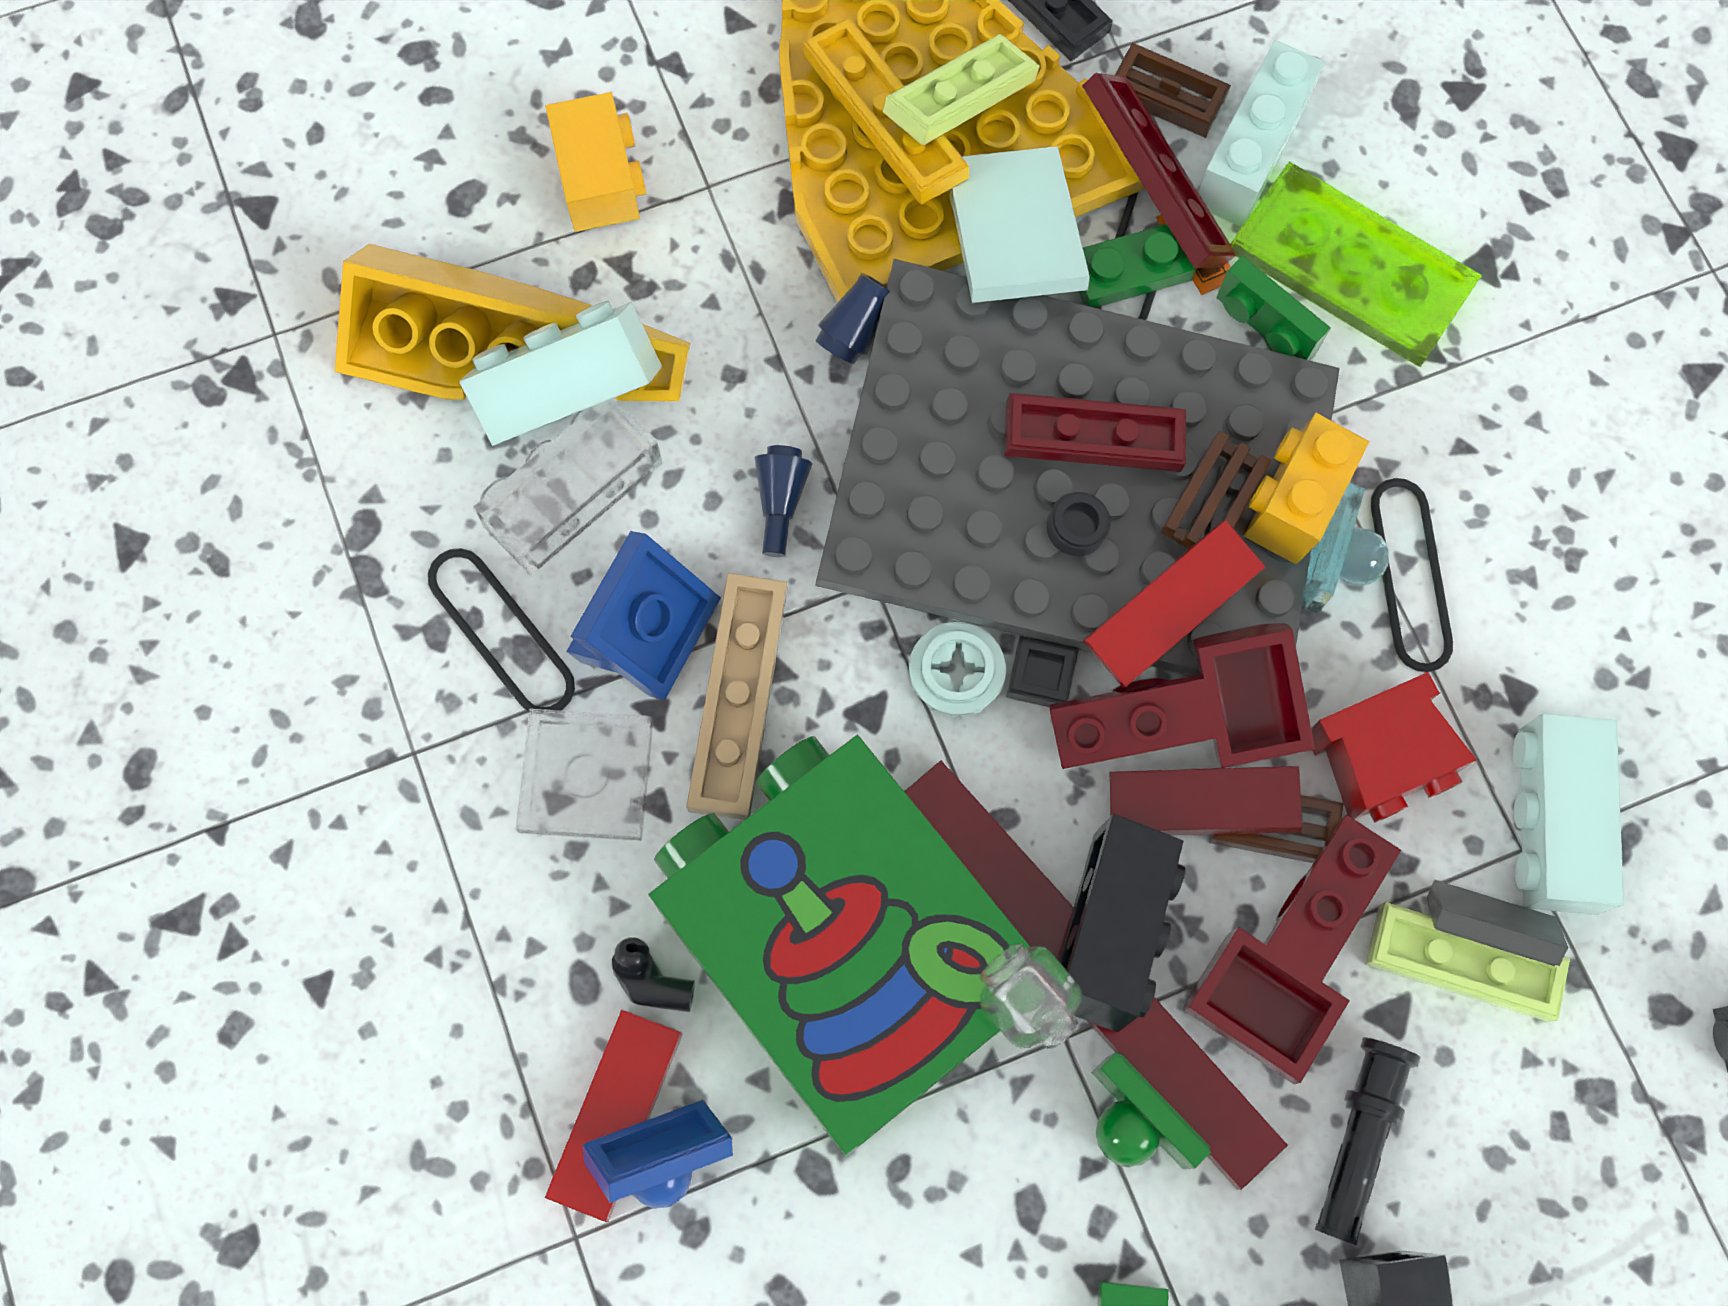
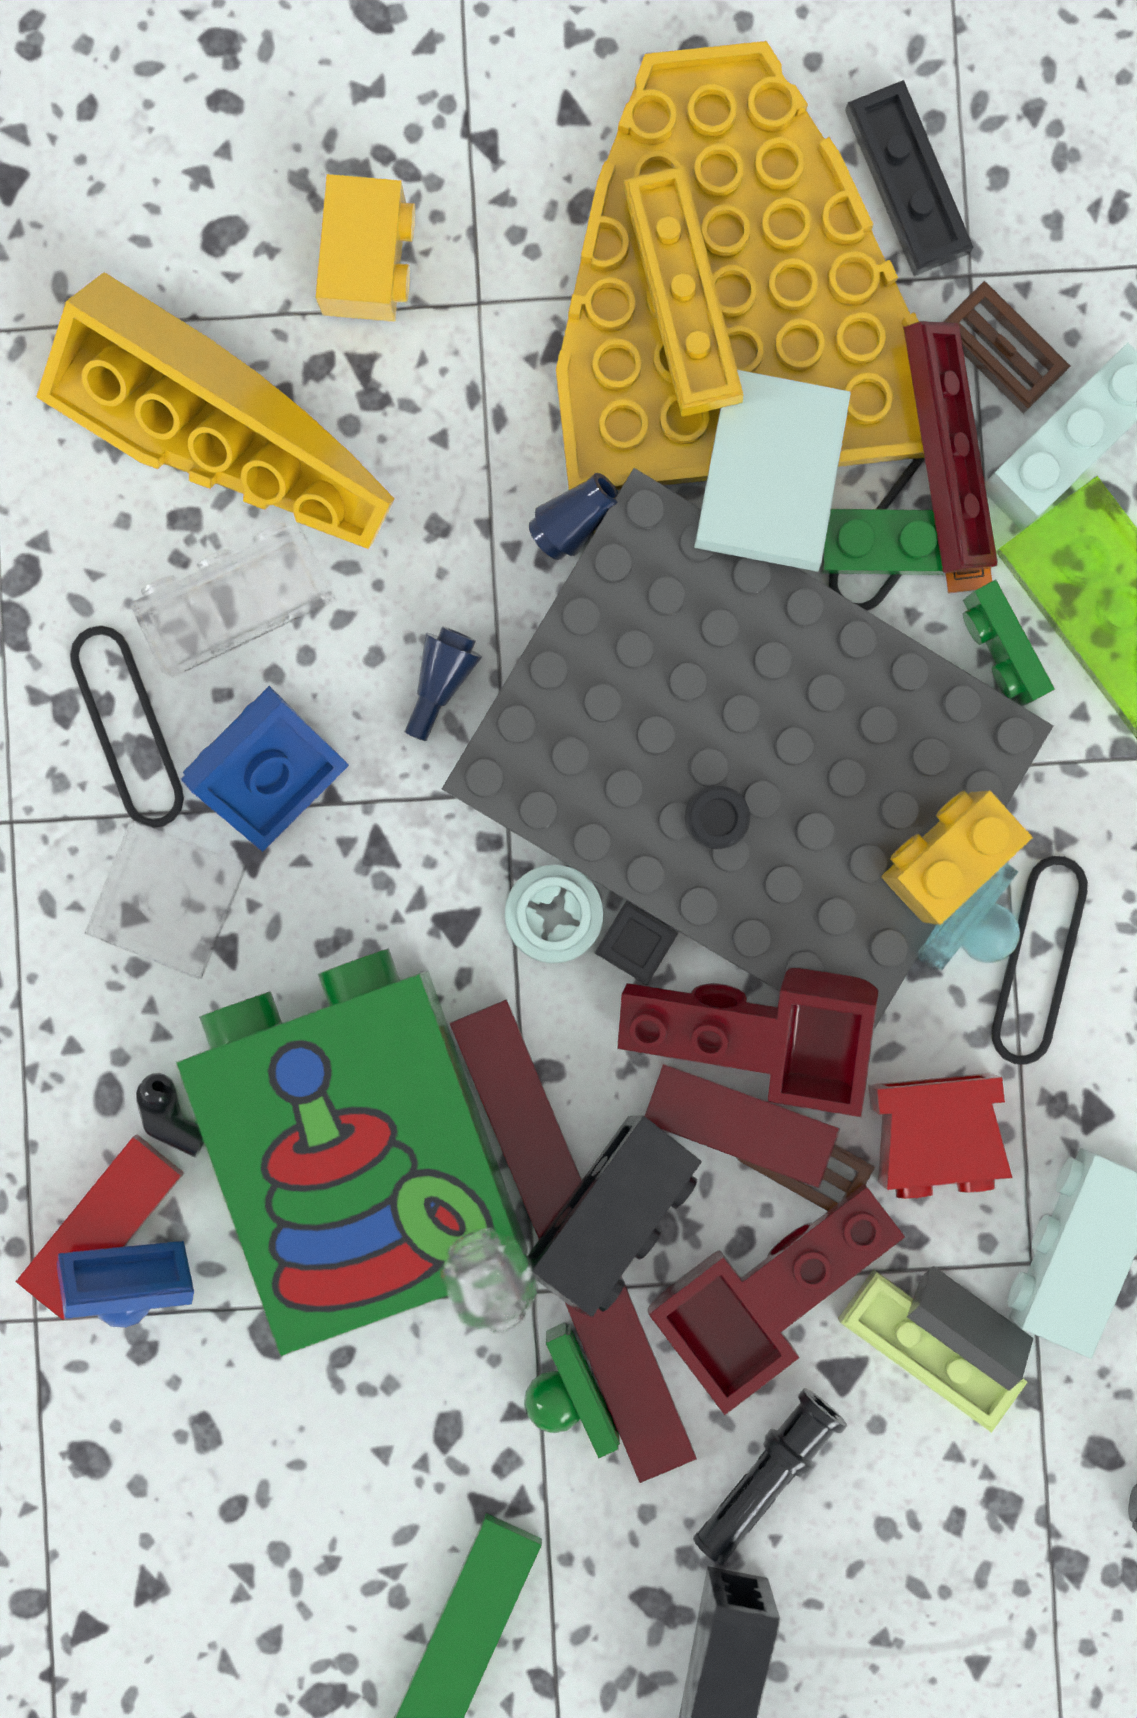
camera: 20 degrees right, 15 degrees up
(560, 371) = (255, 490): light aqua brick -> none
(737, 697) = (333, 872): tan plate -> none
(960, 89) = (770, 296): yellowish green tile -> none
(1095, 432) = (770, 726): dark red tile -> none
(1173, 603) = (779, 930): red tile -> none
(1238, 457) = (905, 797): reddish brown tile -> none

